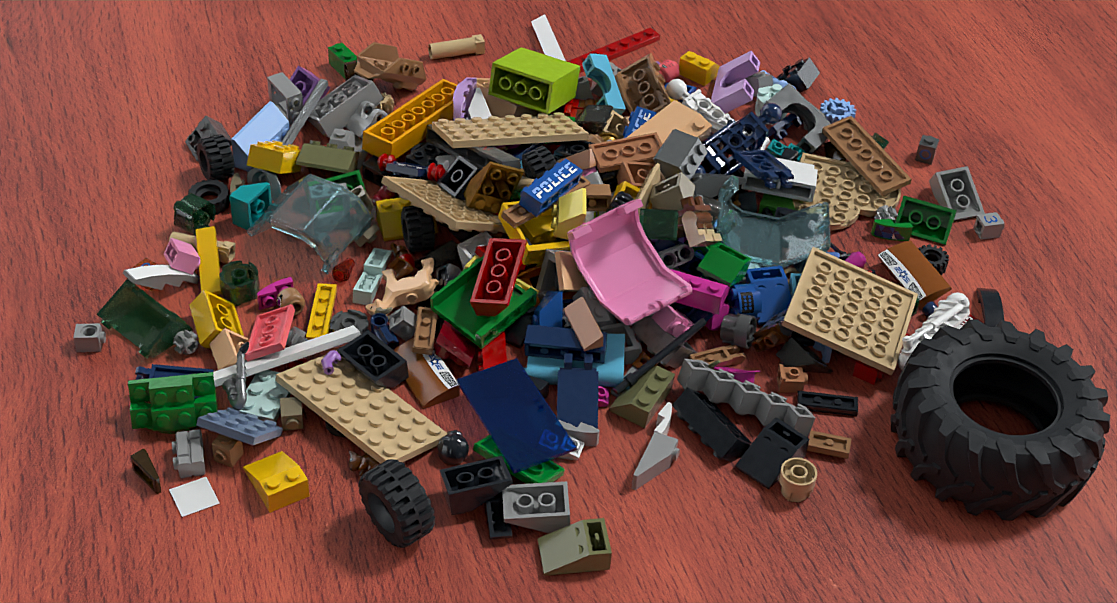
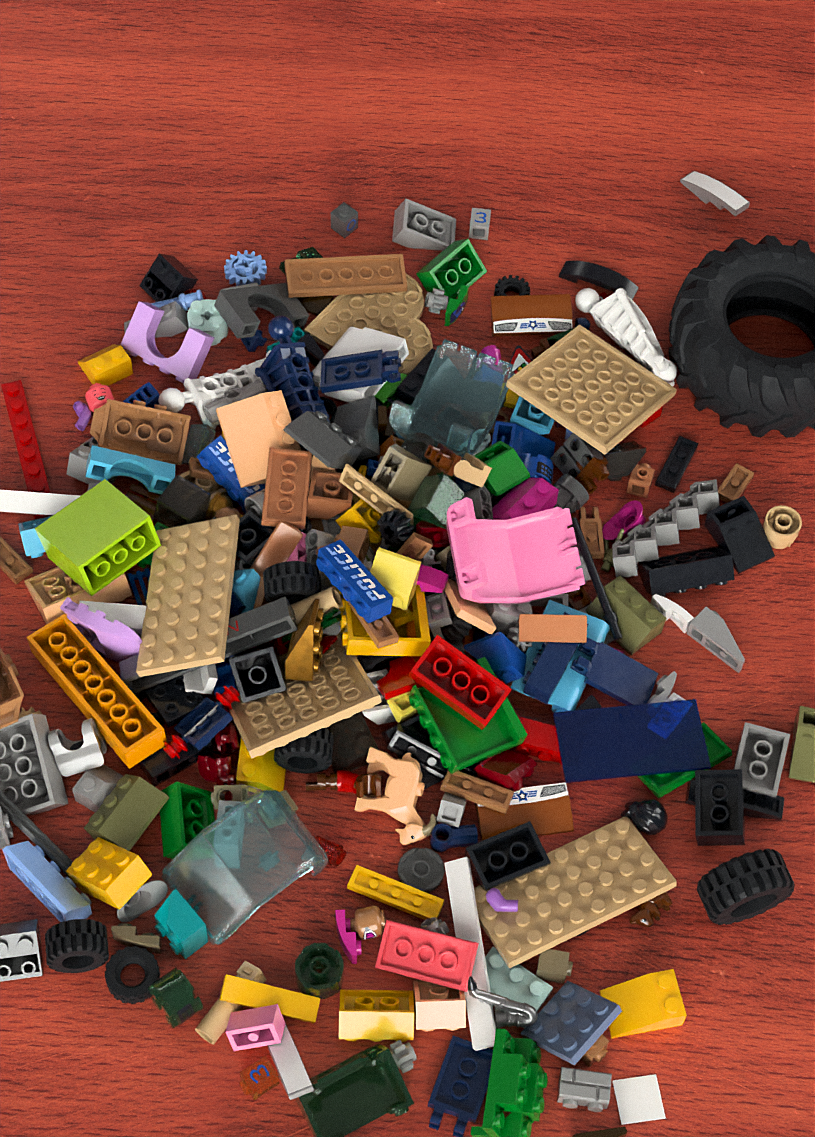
camera: 70 degrees left, 15 degrees up
(371, 277) = (349, 826): light aqua slope -> none

